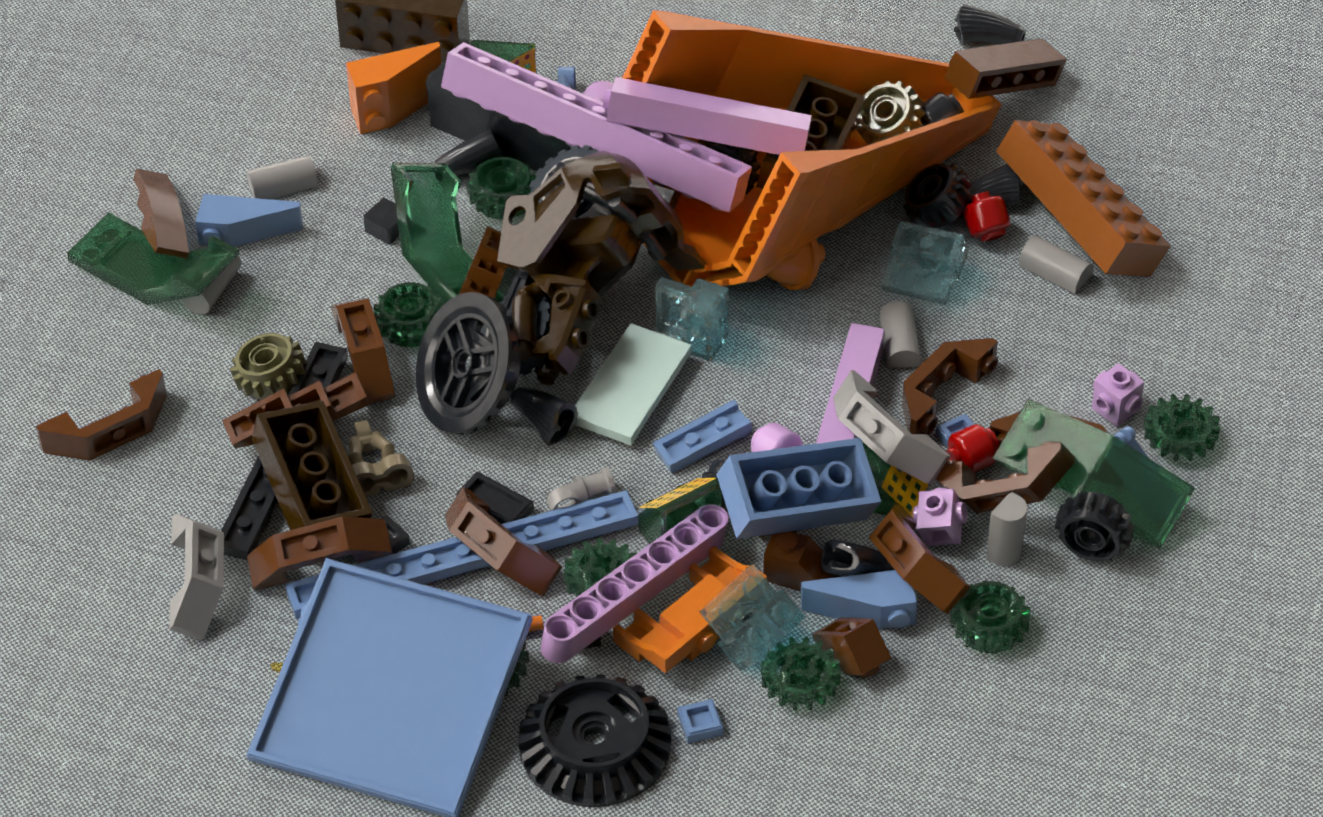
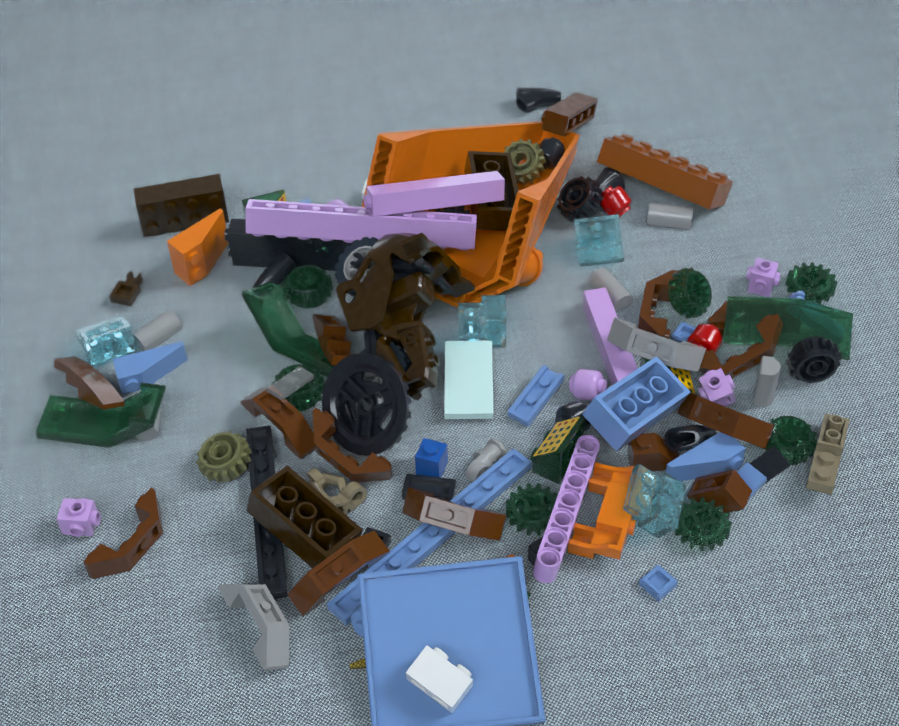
camera: 25 degrees left, 0 degrees up
(60, 372) = (78, 517): none -> lavender brick
(224, 157) = (96, 336): none -> clear light blue brick
(275, 113) = (127, 292): none -> dark brown plate
(340, 400) = (236, 501): reddish brown slope -> none
(353, 714) = (440, 678): none -> white brick
(382, 221) = (243, 333): black piece -> none
(395, 303) = (290, 383): none -> clear piece
(430, 448) = (372, 469): none -> reddish brown slope
(516, 464) = (431, 458): none -> blue brick
(549, 414) = (431, 417): black piece -> none
(570, 766) = (590, 649): black gear -> none
(903, 645) = (752, 477): none -> medium blue tile
(933, 638) = (770, 463): none -> black sticker
(1010, 374) = (689, 292): none -> clear green gear
(1031, 654) = (828, 454): none -> dark tan slope

